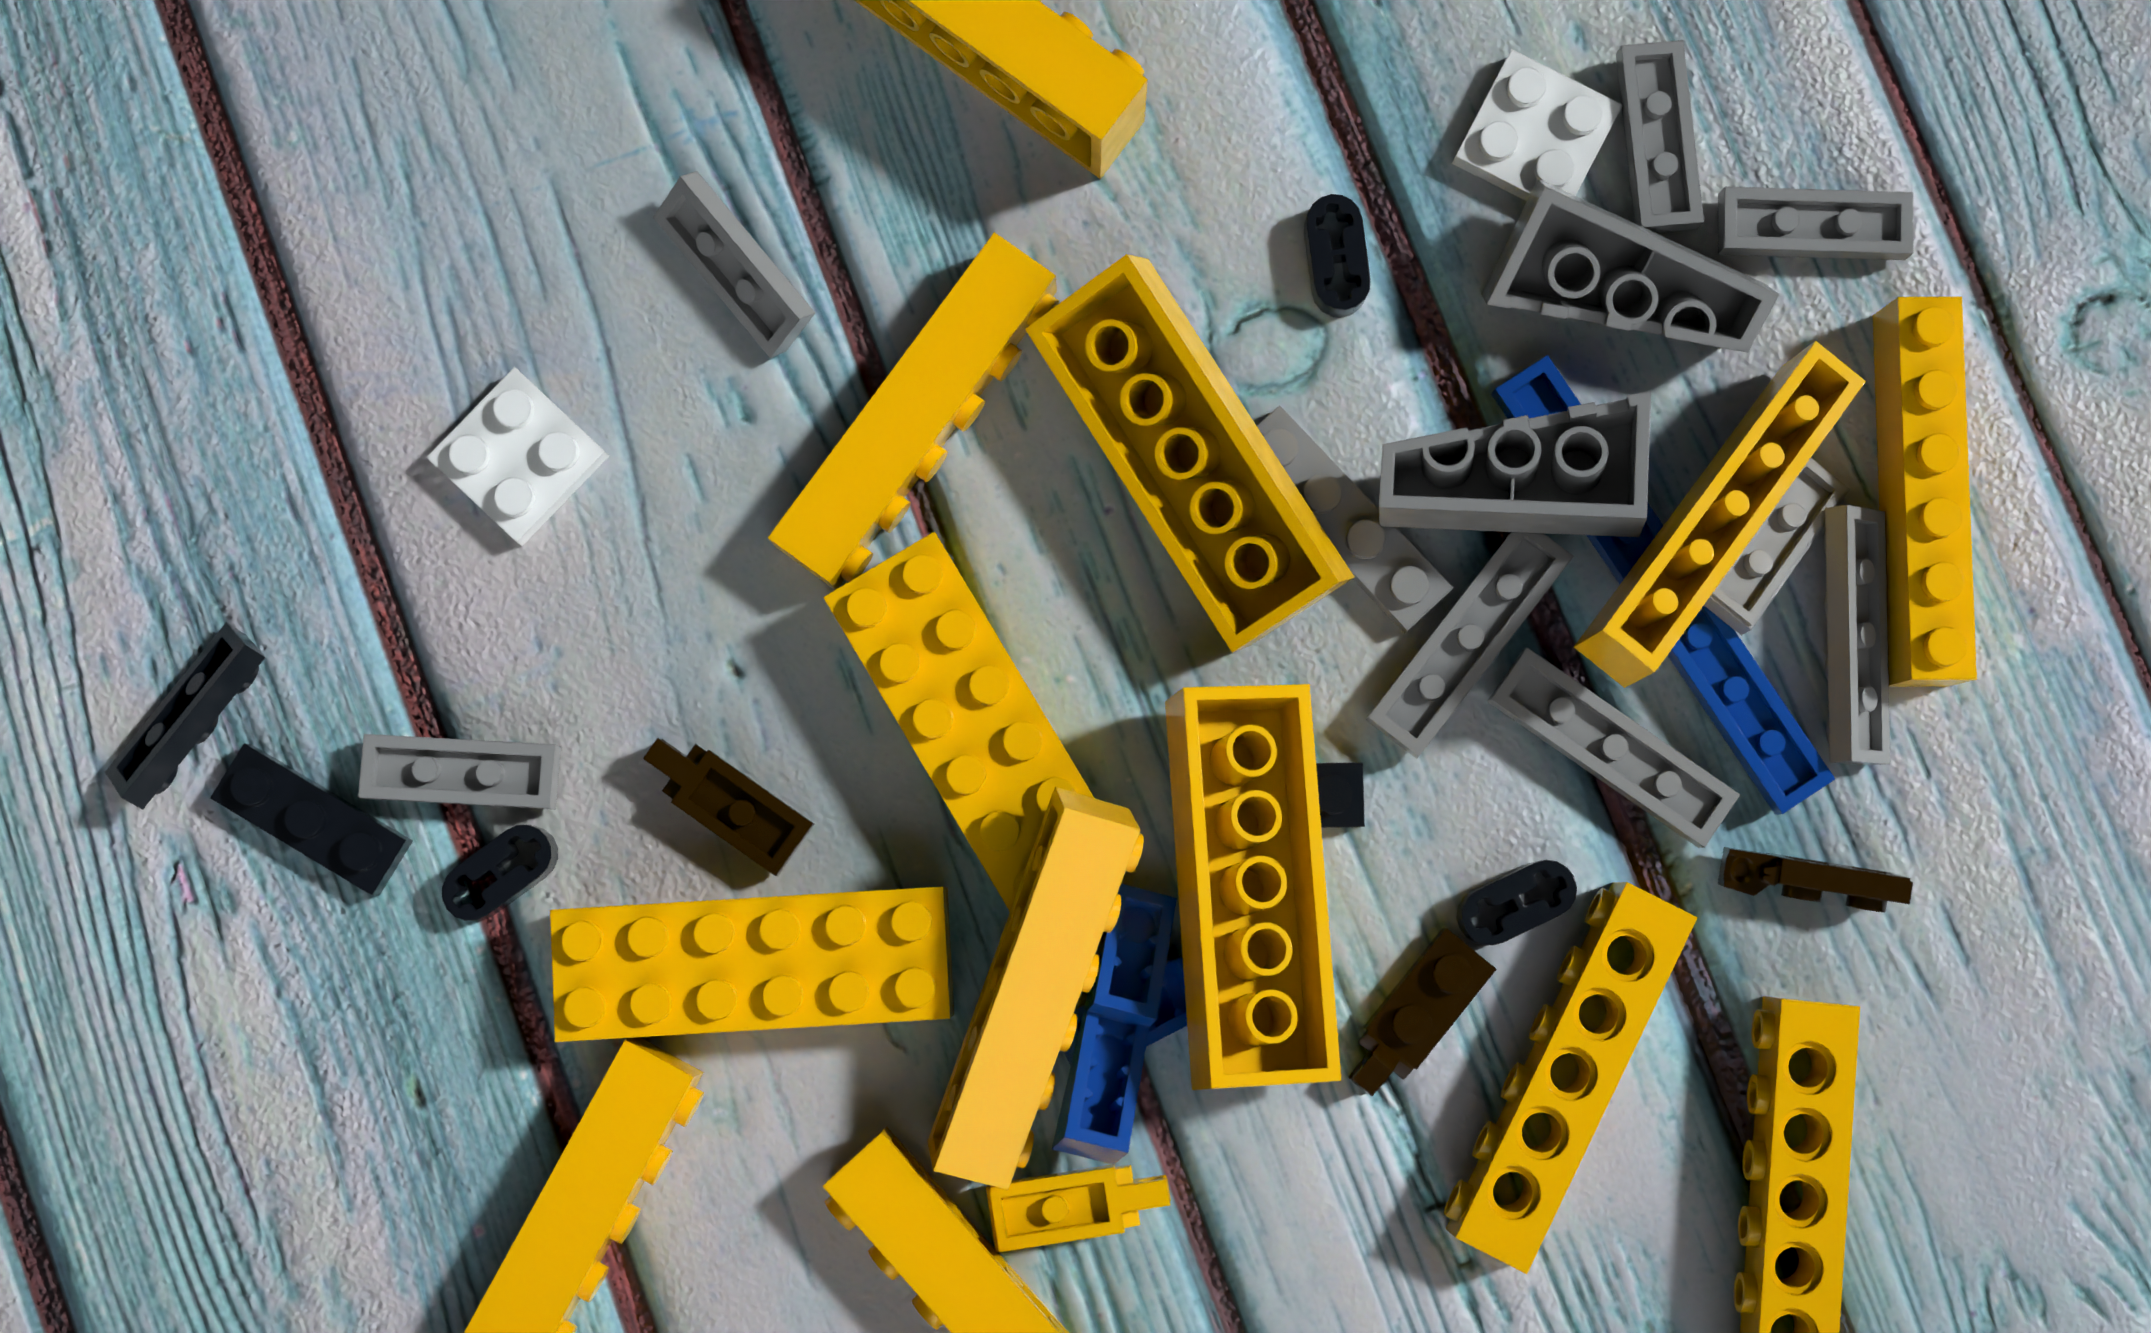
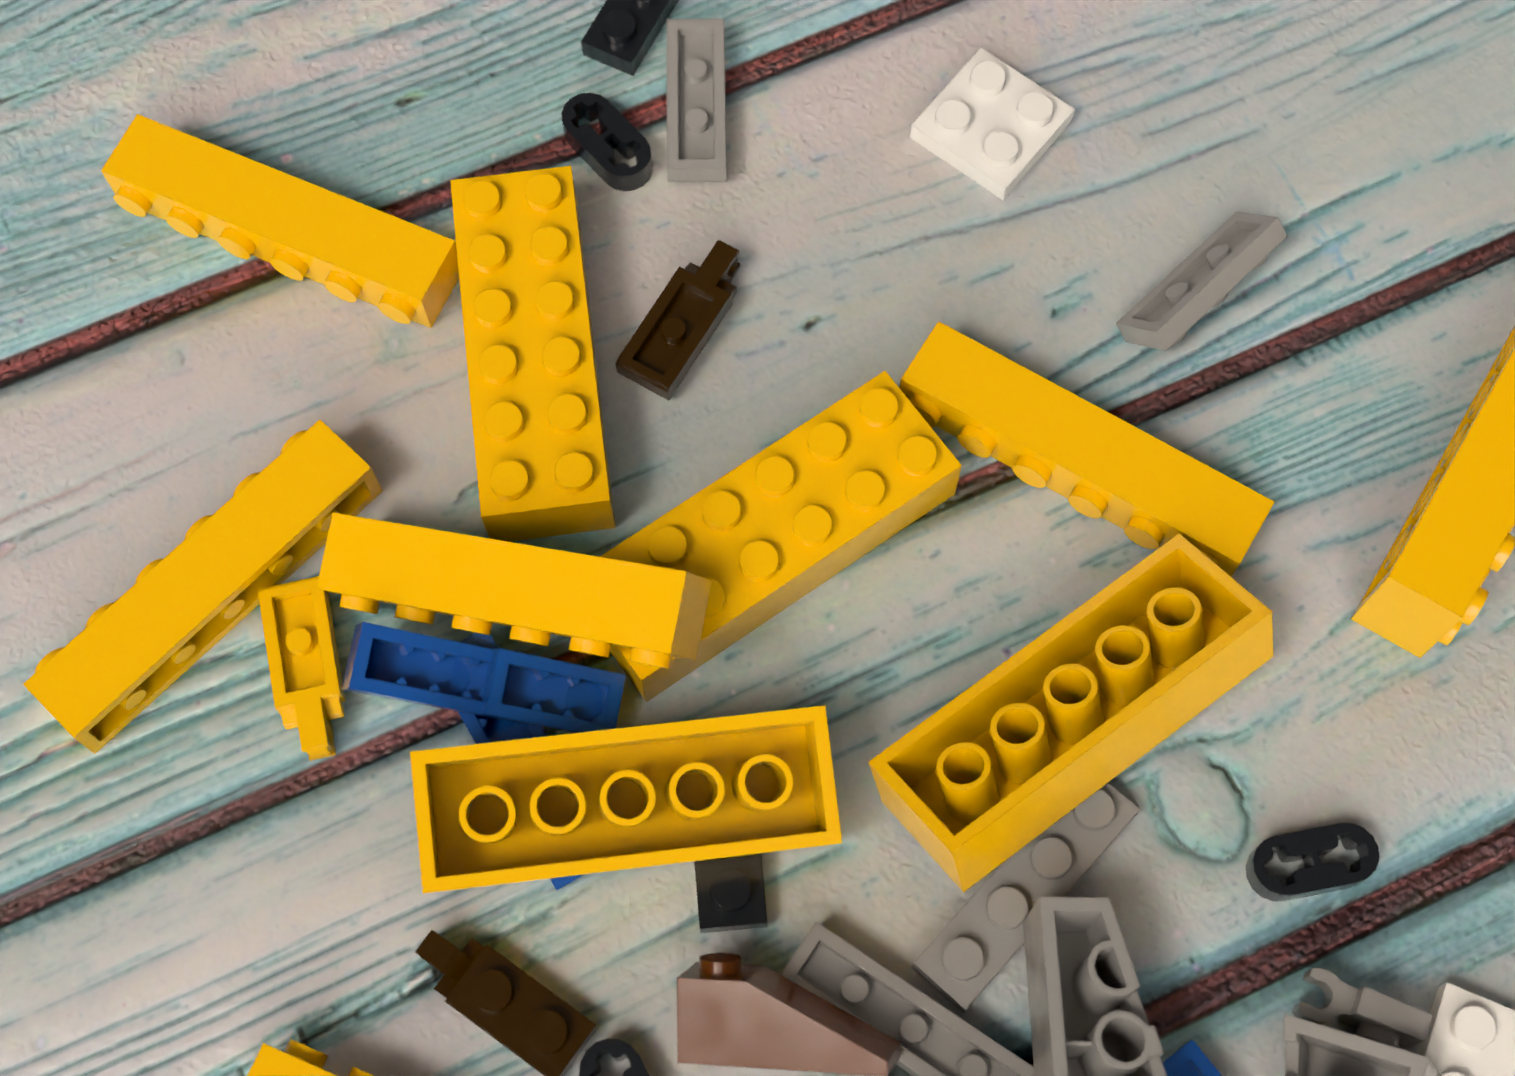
camera: 85 degrees right, 15 degrees down
(1463, 767) = (765, 1021): none -> slope
(1487, 222) = (1368, 1011): none -> light grey plate

